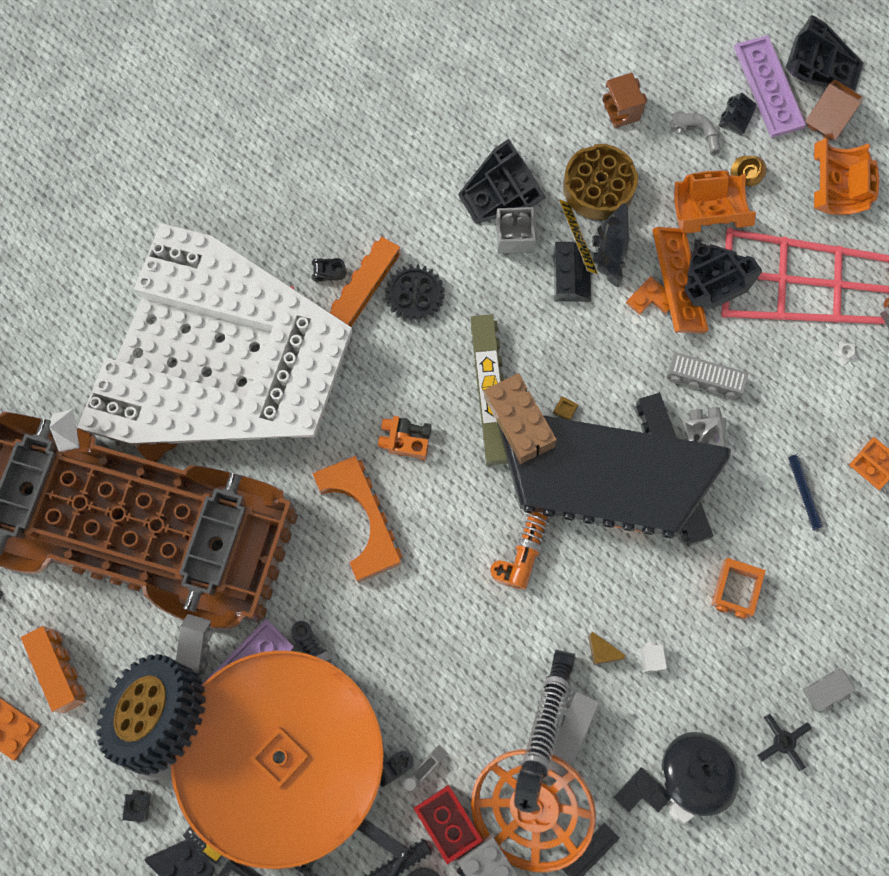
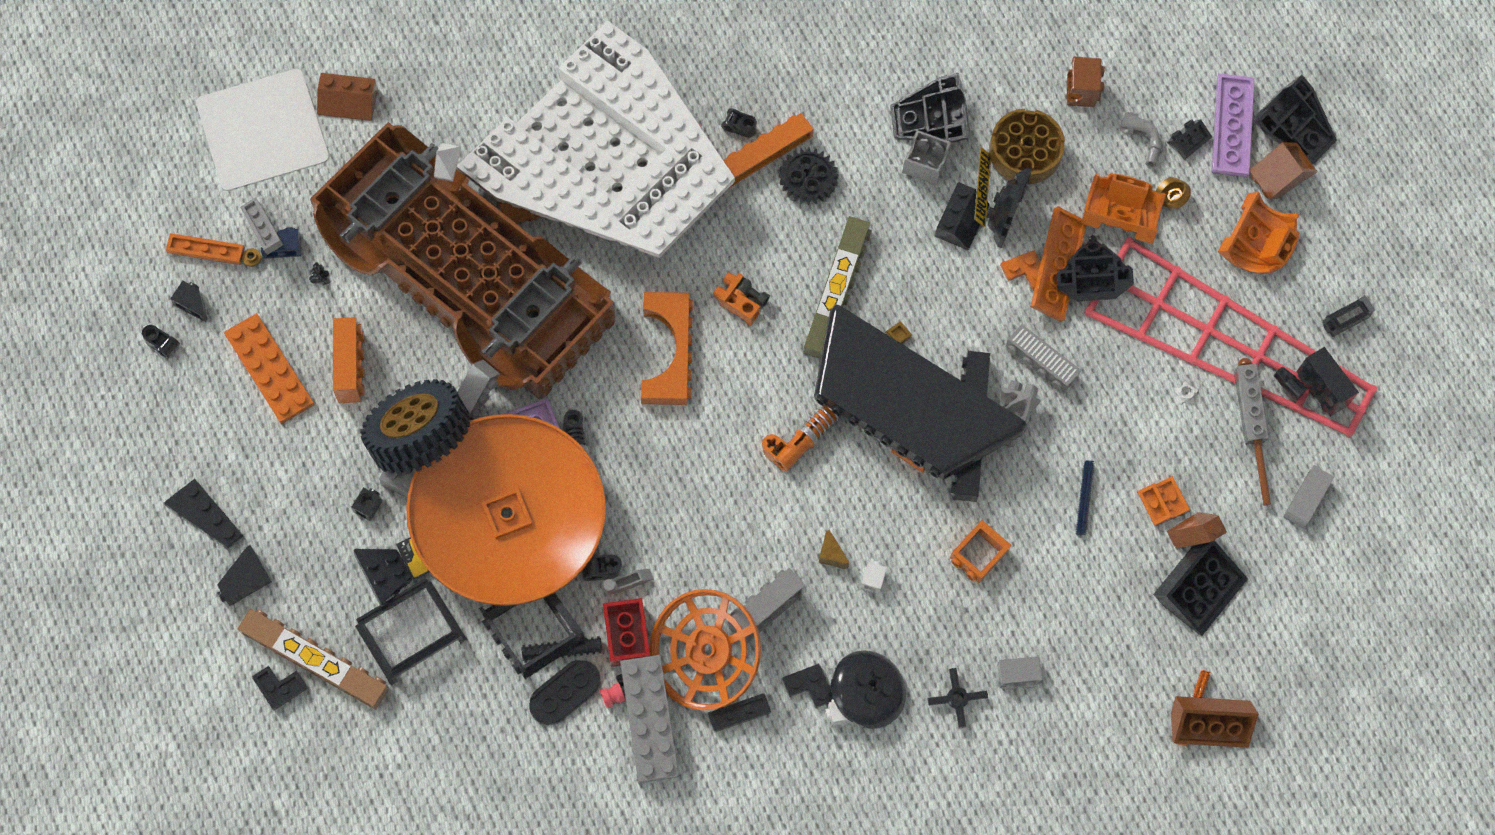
camera: 20 degrees right, 5 degrees down
(519, 418) = (848, 316): medium nougat piece -> none
(536, 764) = (710, 604): black piece -> none

